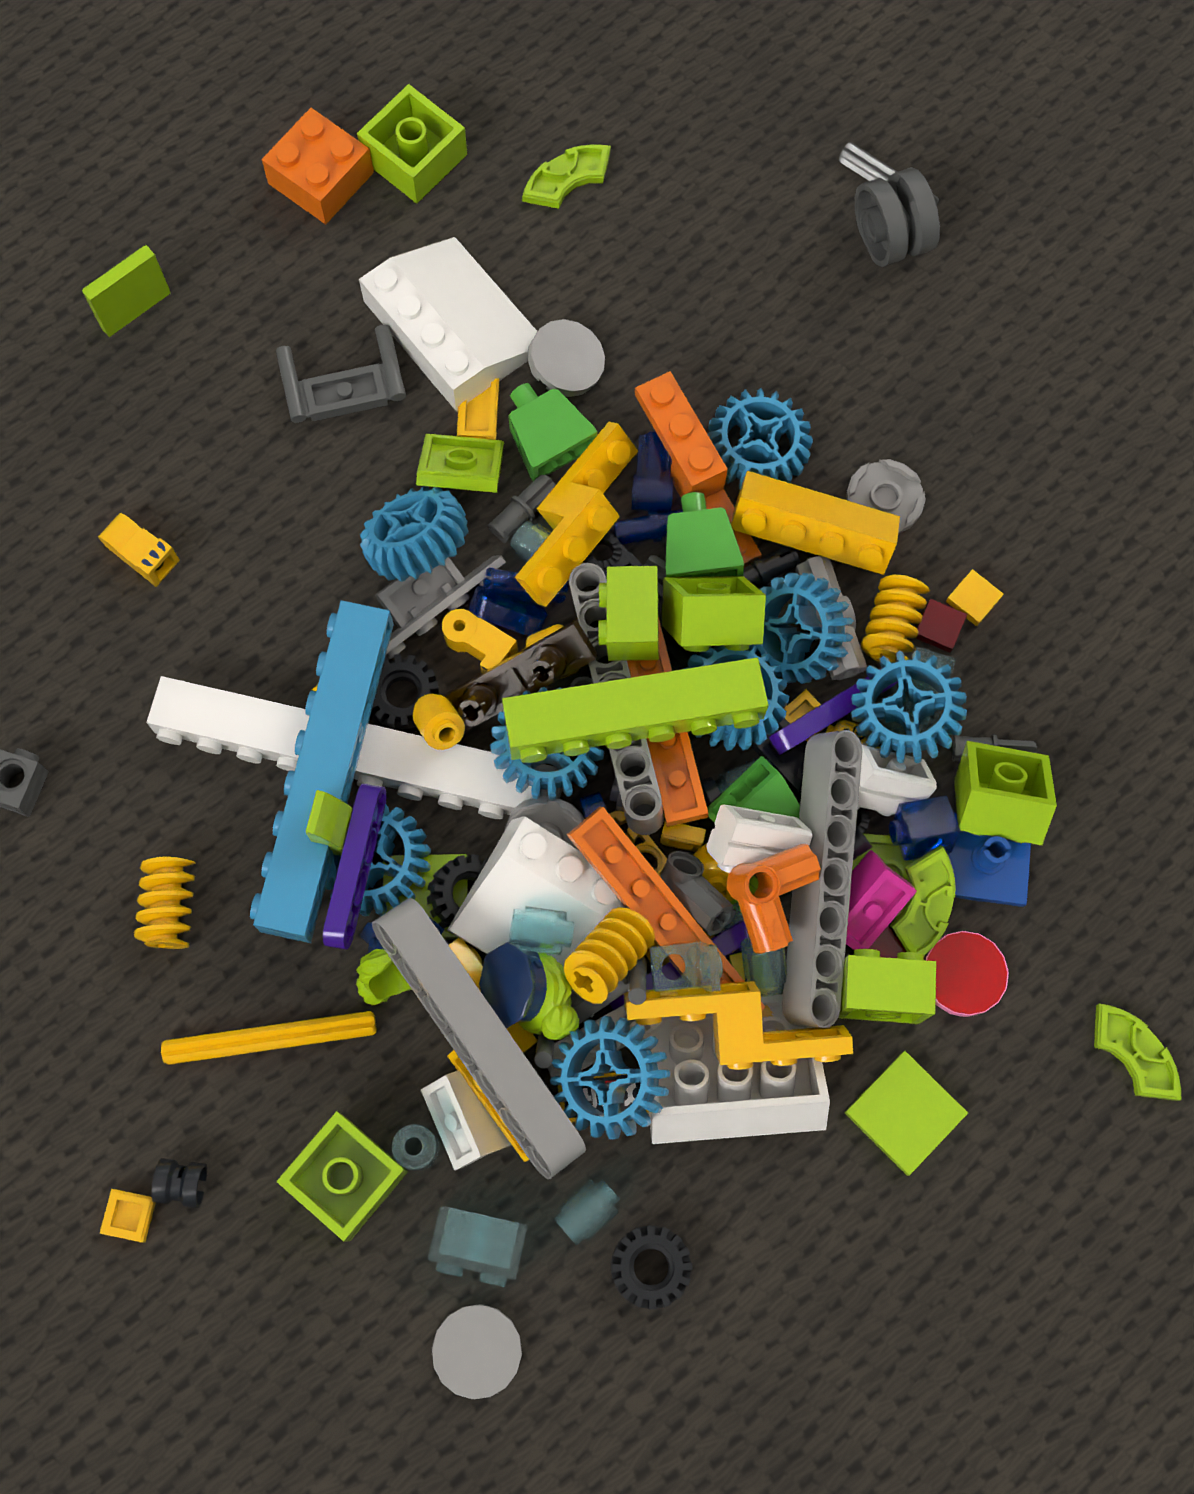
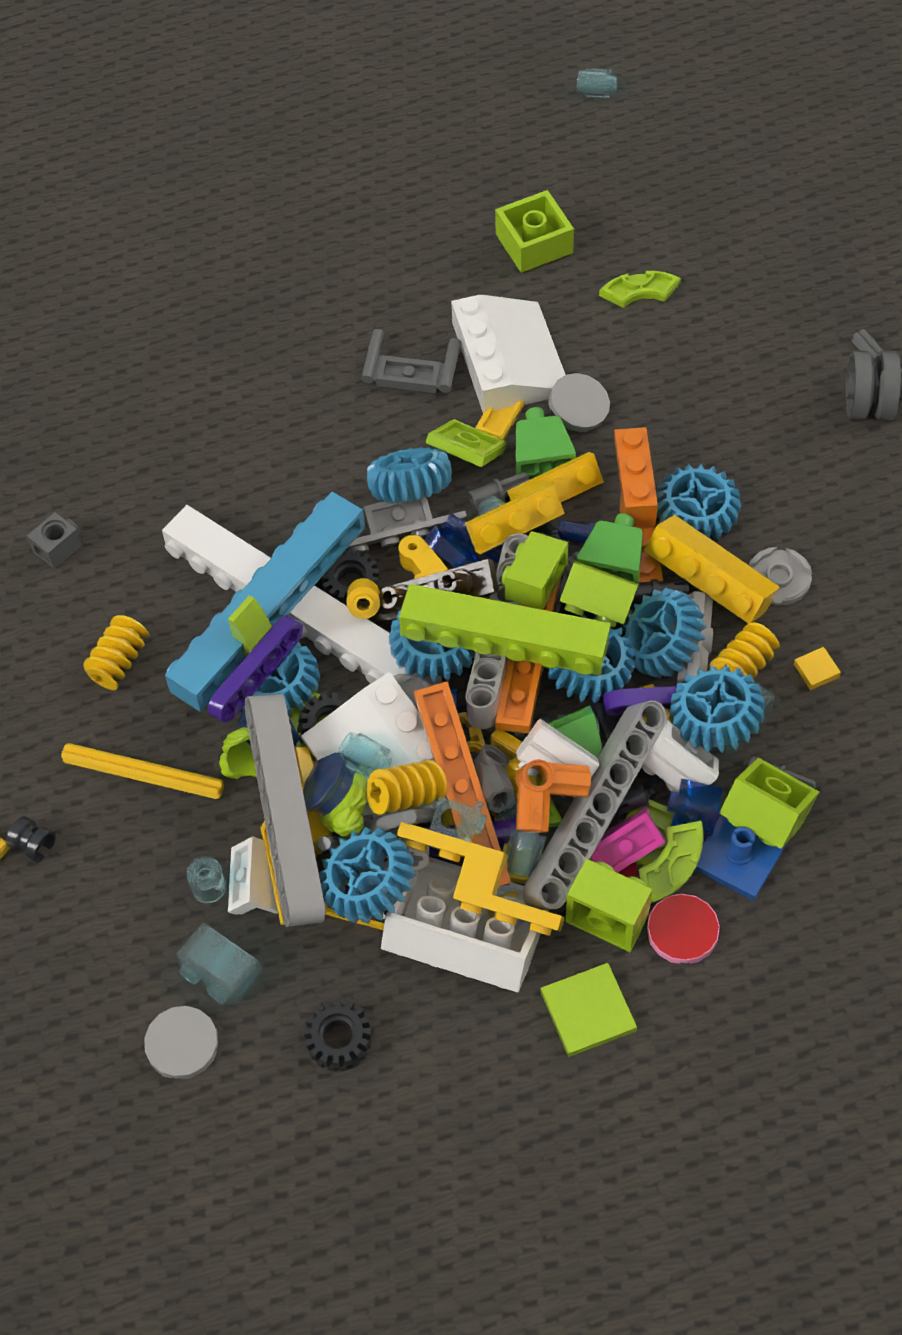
camera: 30 degrees right, 15 degrees down
(126, 291) = (288, 259): lime tile -> none
(139, 548) = (215, 424): yellow leg -> none
(318, 165) = (461, 225): orange brick -> none
(342, 1177) = (145, 877): lime brick -> none
(587, 1211) = (310, 976): clear light blue brick -> none
(652, 482) = (605, 501): clear blue piece -> none
(940, 625) = (780, 678): dark red tile -> none
(1151, 1064) = (800, 1039): lime tile -> none

